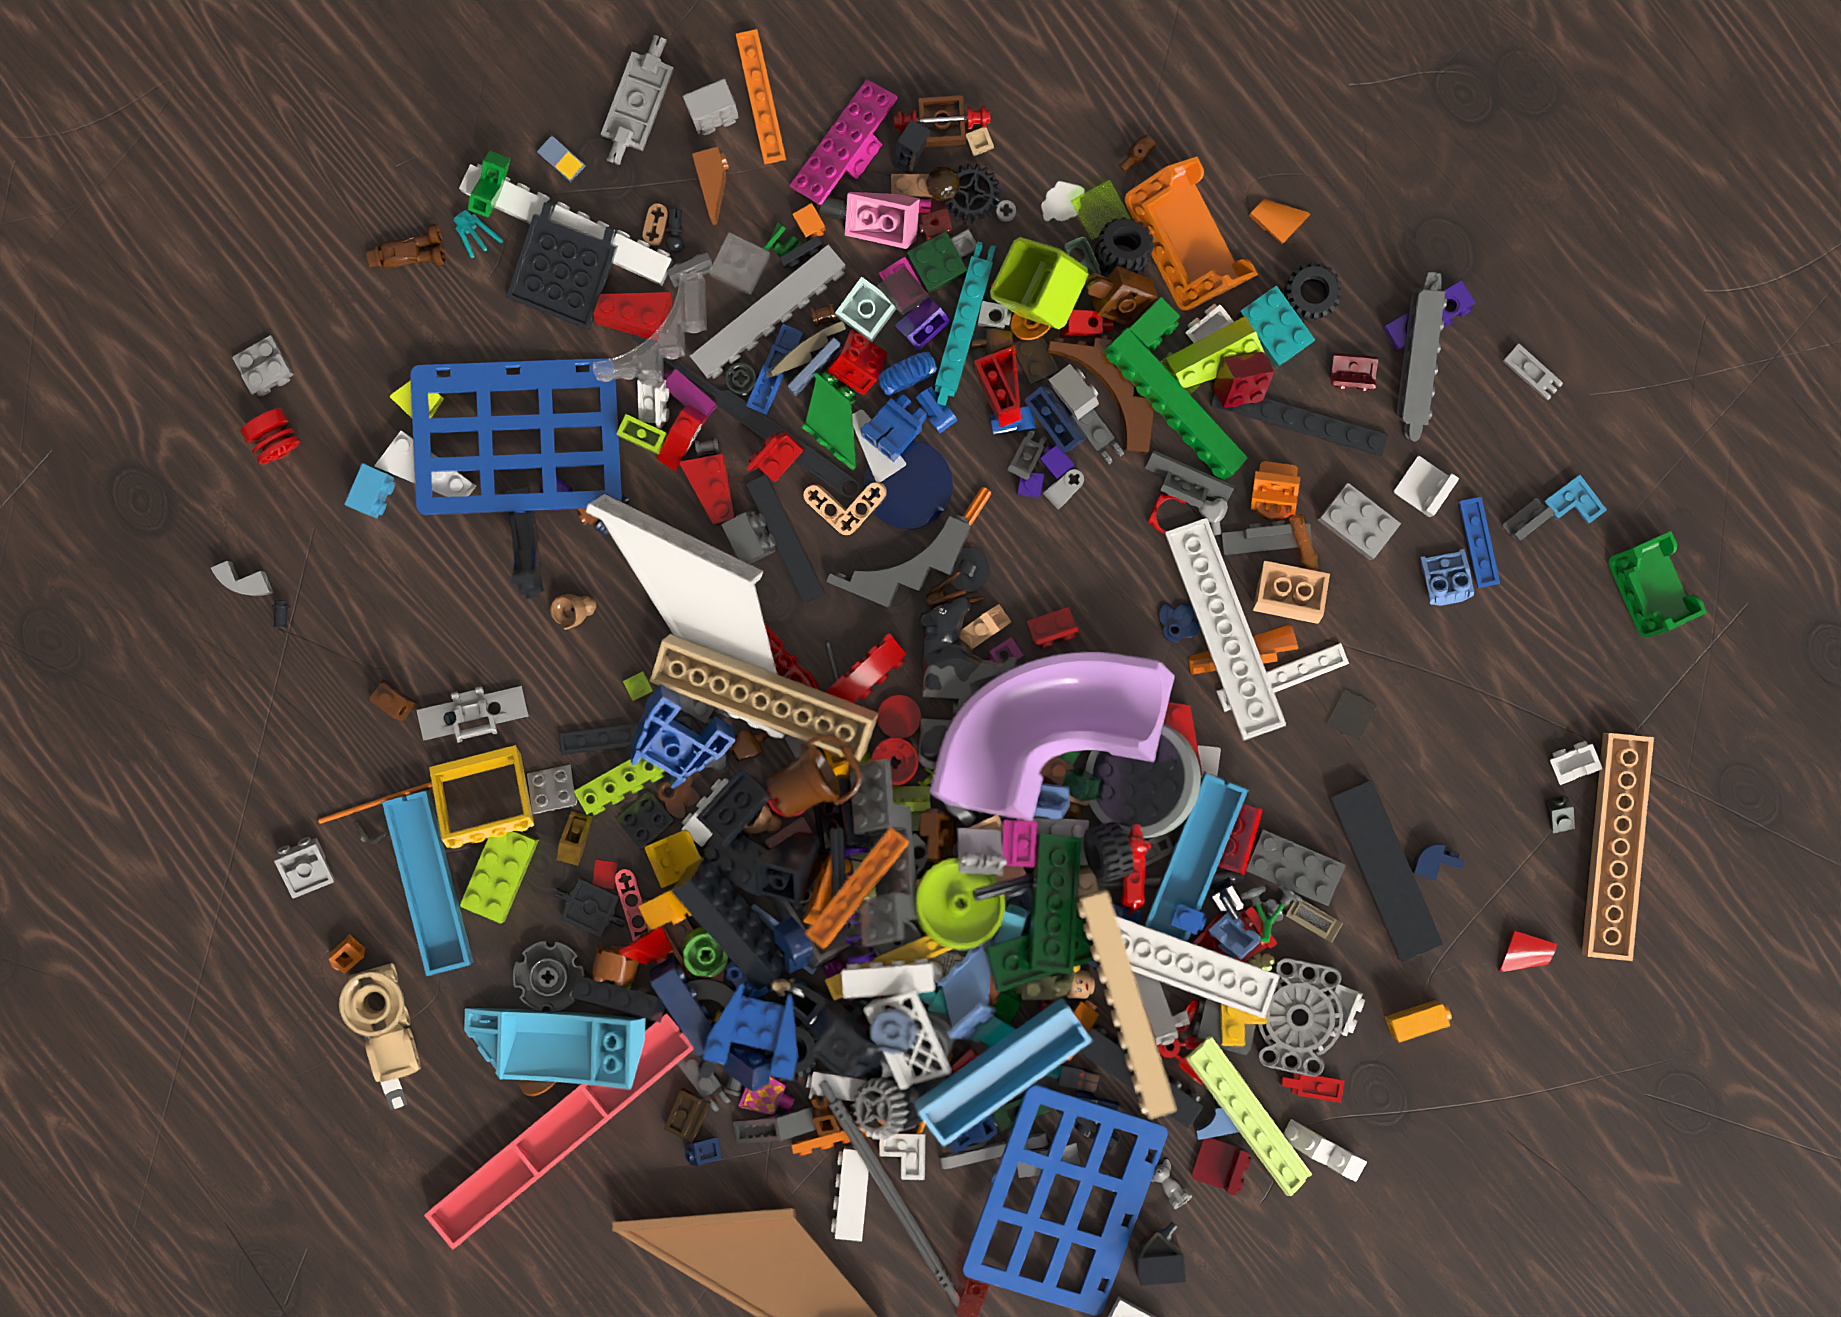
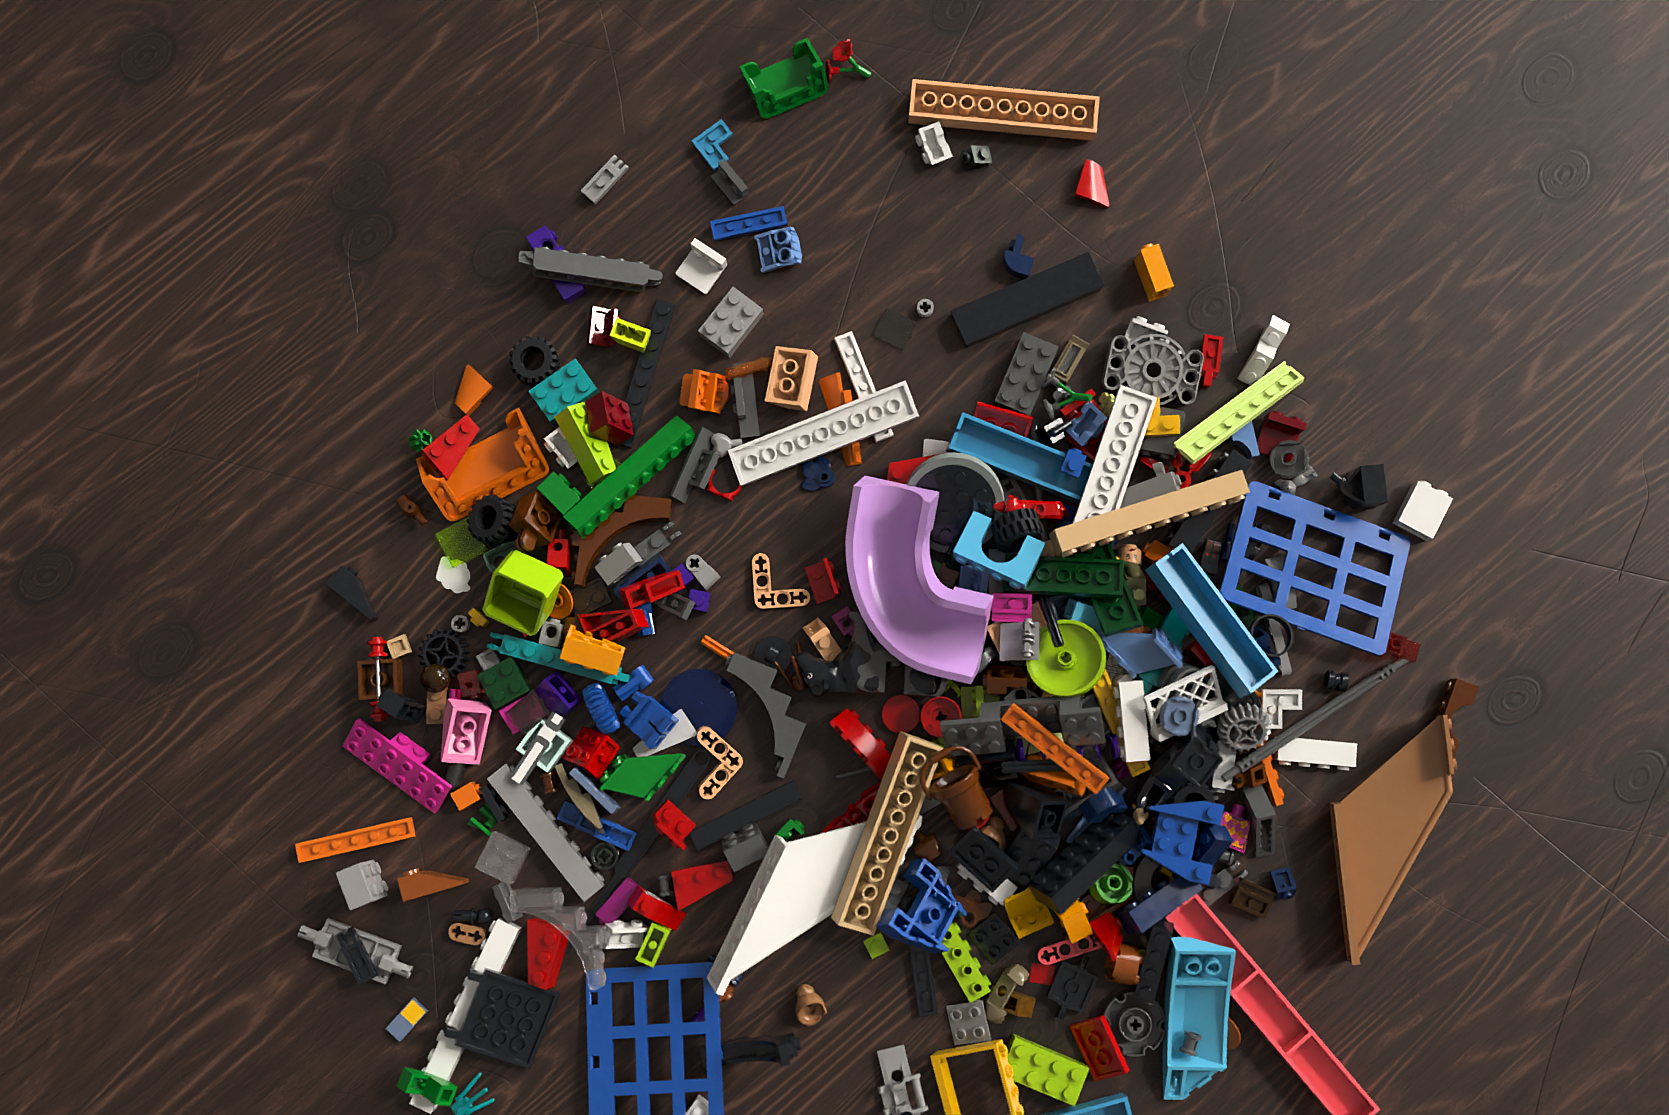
camera: 90 degrees left, 5 degrees down
(522, 936) = (1099, 1048): none -> red plate
(527, 1039) = (1190, 1043): none -> dark grey bush
(570, 818) = (1011, 976): none -> dark tan piece
(630, 103) = (357, 957): none -> black hinge
(766, 584) = (786, 830): none -> green bracket
(862, 301) = (537, 748): none -> sticker
(934, 1221) = (1336, 681): none -> black wheel
(970, 362) = (592, 653): none -> light orange wedge
(998, 1159) = (1284, 623): none -> black tyre
(1011, 231) = (478, 618): none -> yellow plate
(1041, 554) = (766, 590): none -> light nougat beam
(1043, 430) = (651, 589): none -> red slope
(1044, 87) = (352, 589): none -> black slope
(1059, 848) = (1016, 571): none -> medium azure arch
(1191, 1187) = (1293, 469): none -> dark grey tile
(1210, 196) = (450, 447): none -> red wedge
(1218, 161) = (419, 440): none -> green gear
(1342, 404) = (632, 335): none -> neon yellow torso
(1371, 745) = (929, 304): none -> light grey bush
(1683, 652) = (842, 53): none -> red plant

